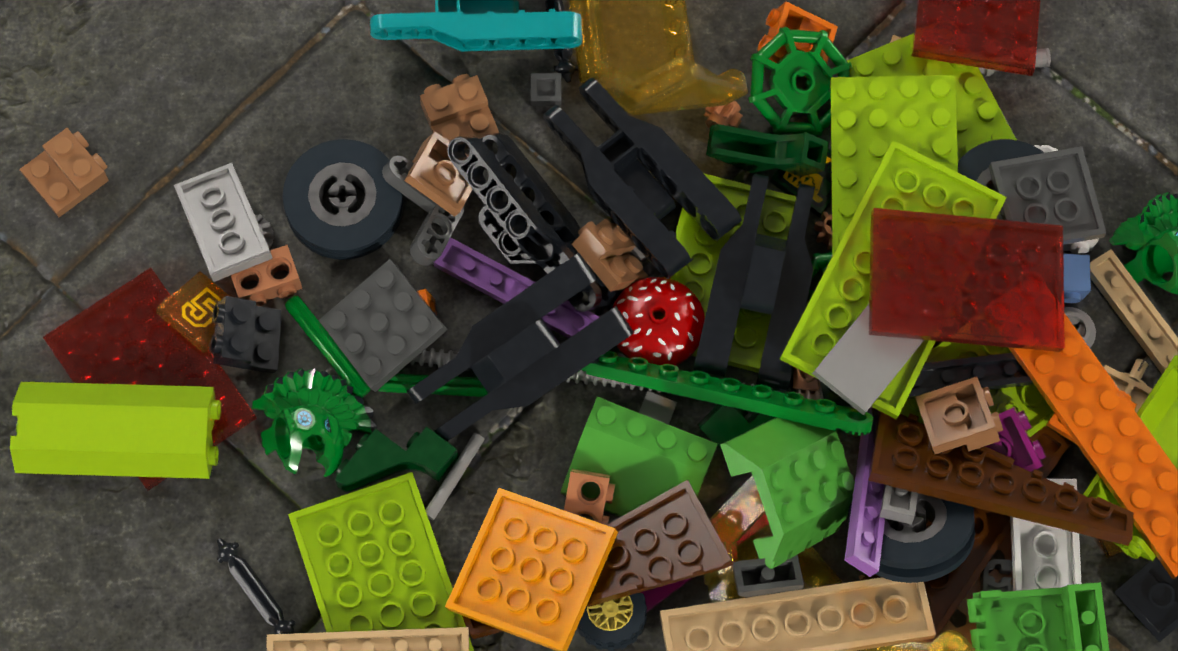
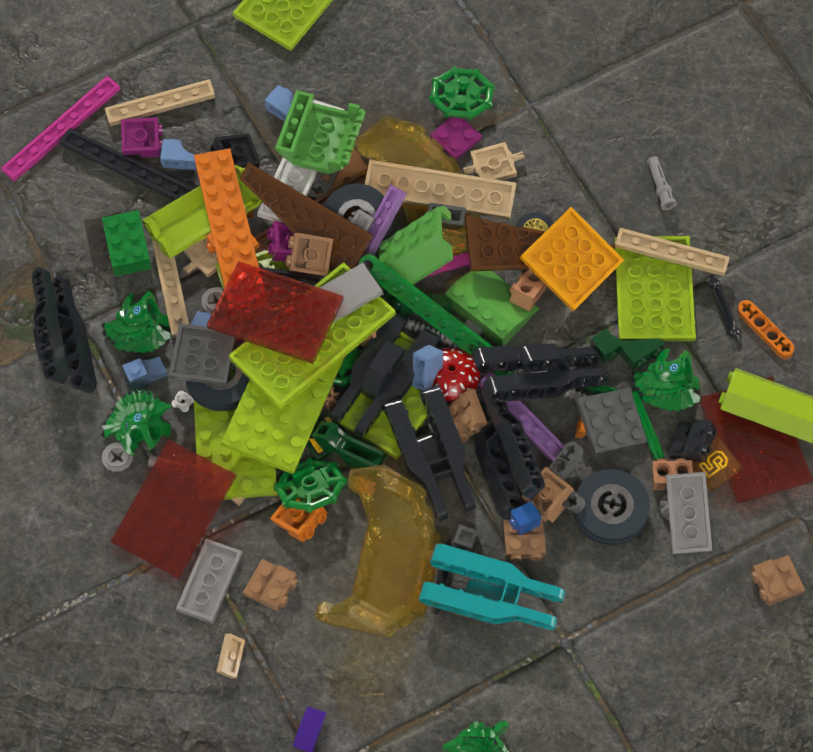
camera: 155 degrees left, 5 degrees down
(176, 577) = (764, 330): none -> orange beam
(454, 476) = (608, 324): light grey bar -> none
(466, 122) = (525, 518): none -> blue brick
(697, 303) = (426, 366): none -> medium blue arch
(1096, 104) = (137, 418): none -> green piece
(1108, 45) = (108, 458): none -> light grey gear
(1124, 180) = (144, 372): none -> medium blue arch

